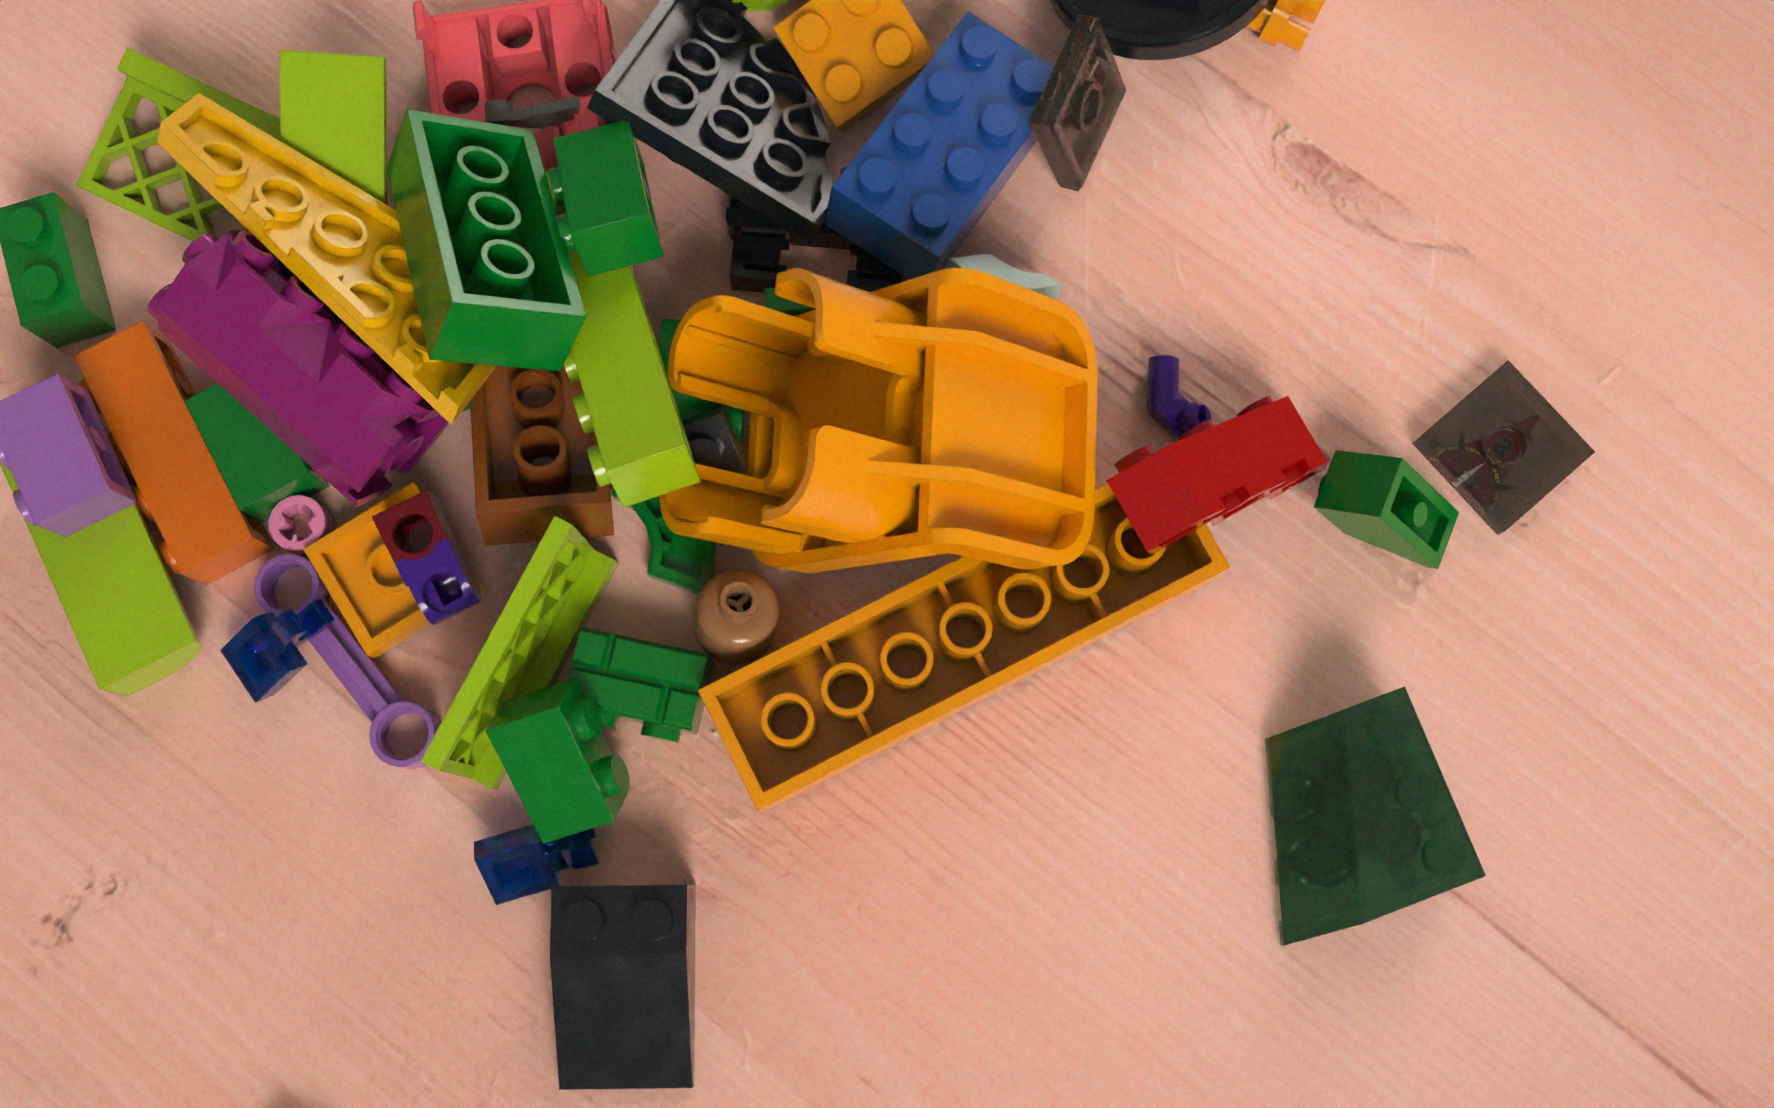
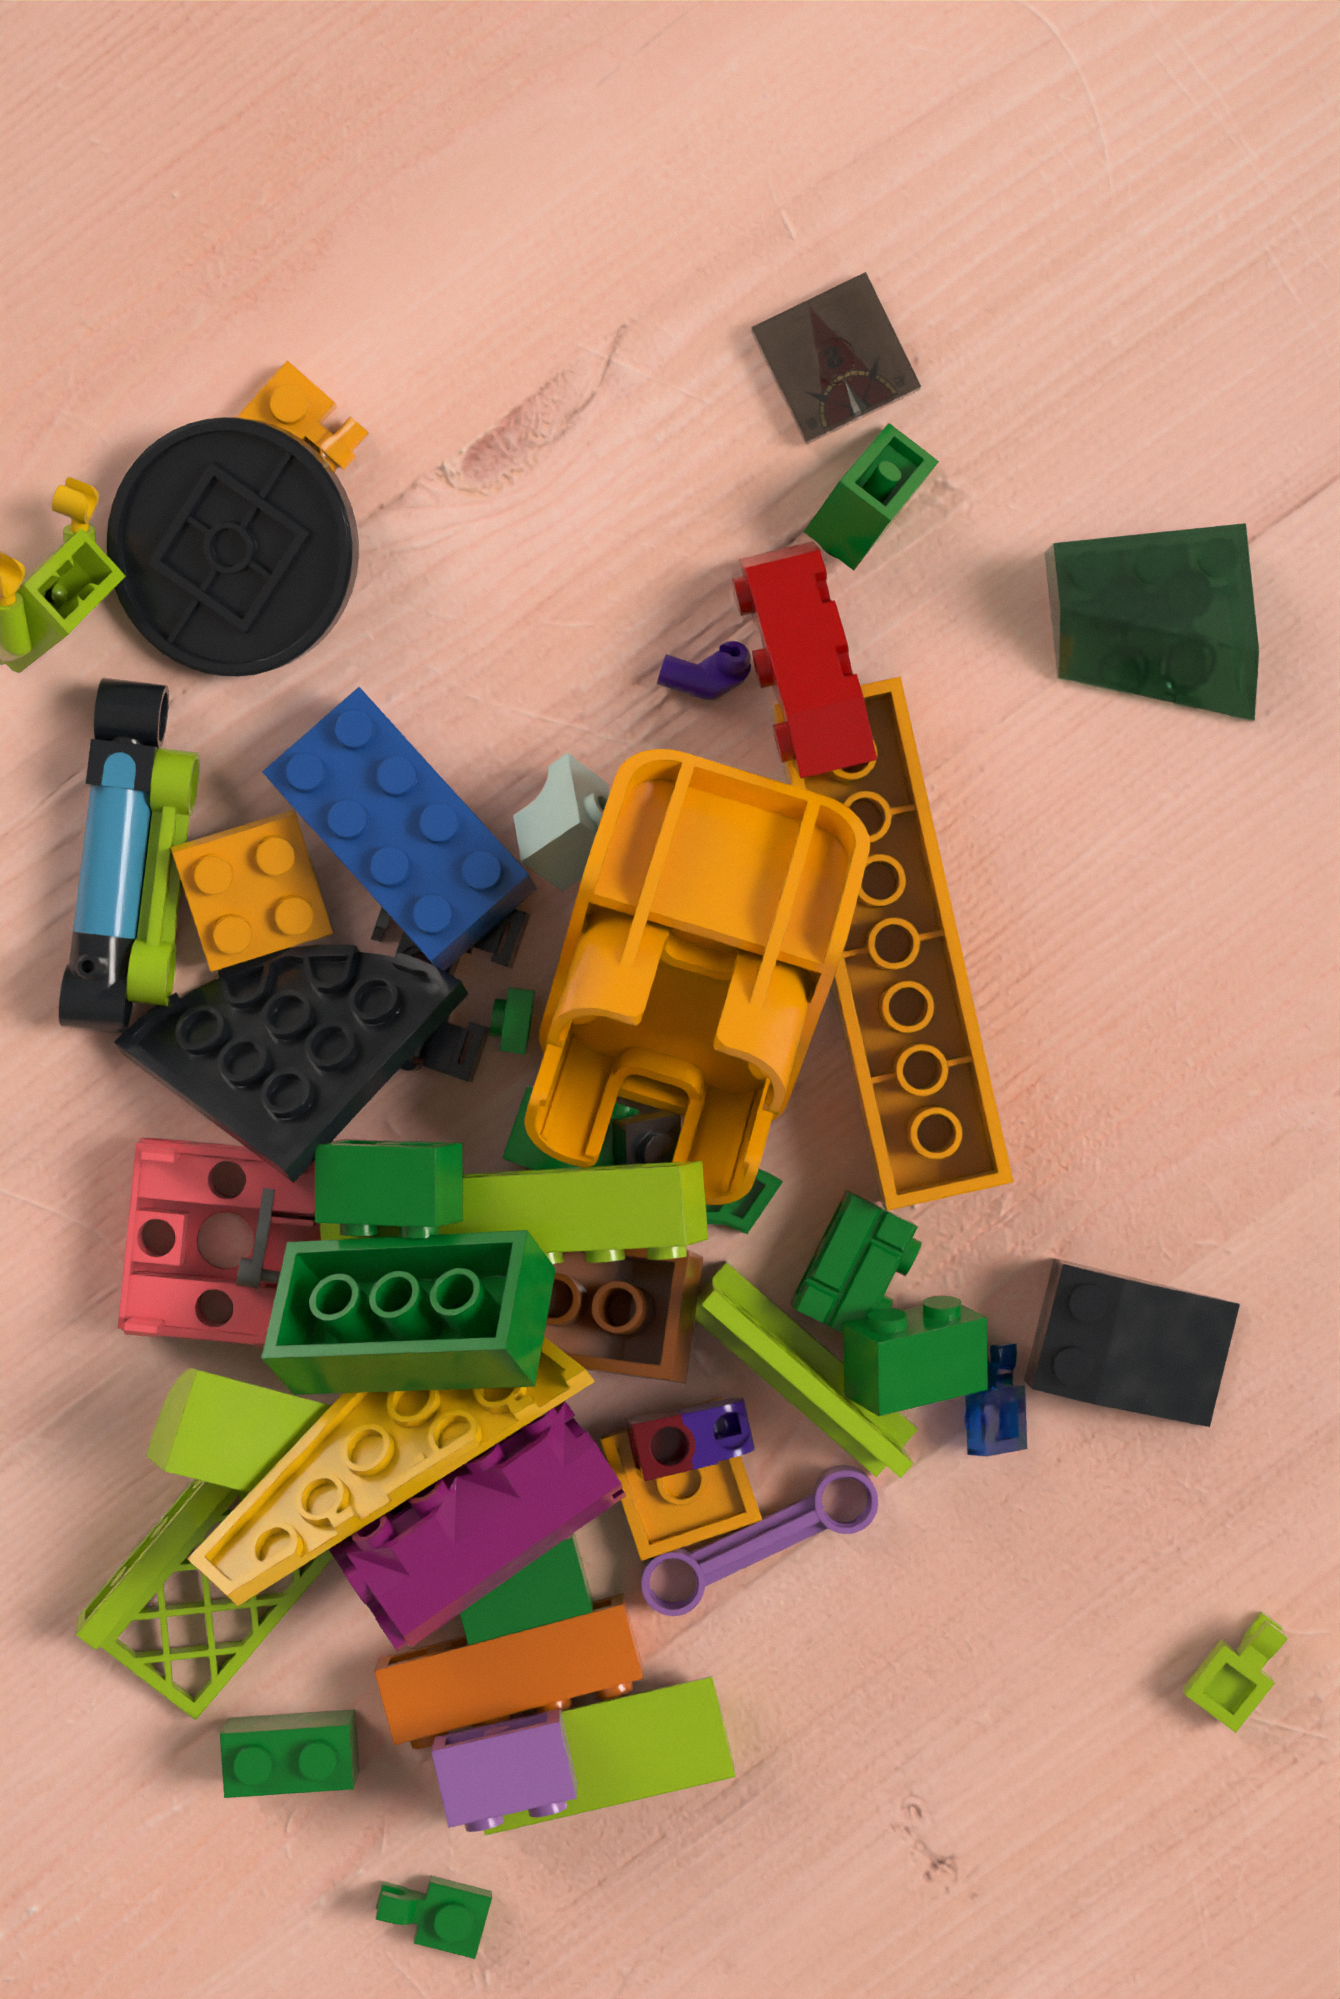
camera: 70 degrees left, 10 degrees up
(267, 648) = (737, 1612): clear blue plate -> none
(282, 525) = (604, 1578): bright pink bush -> none
(736, 616) = (839, 1161): medium nougat head -> none
(1078, 103) = (385, 684): clear smoke tile -> none

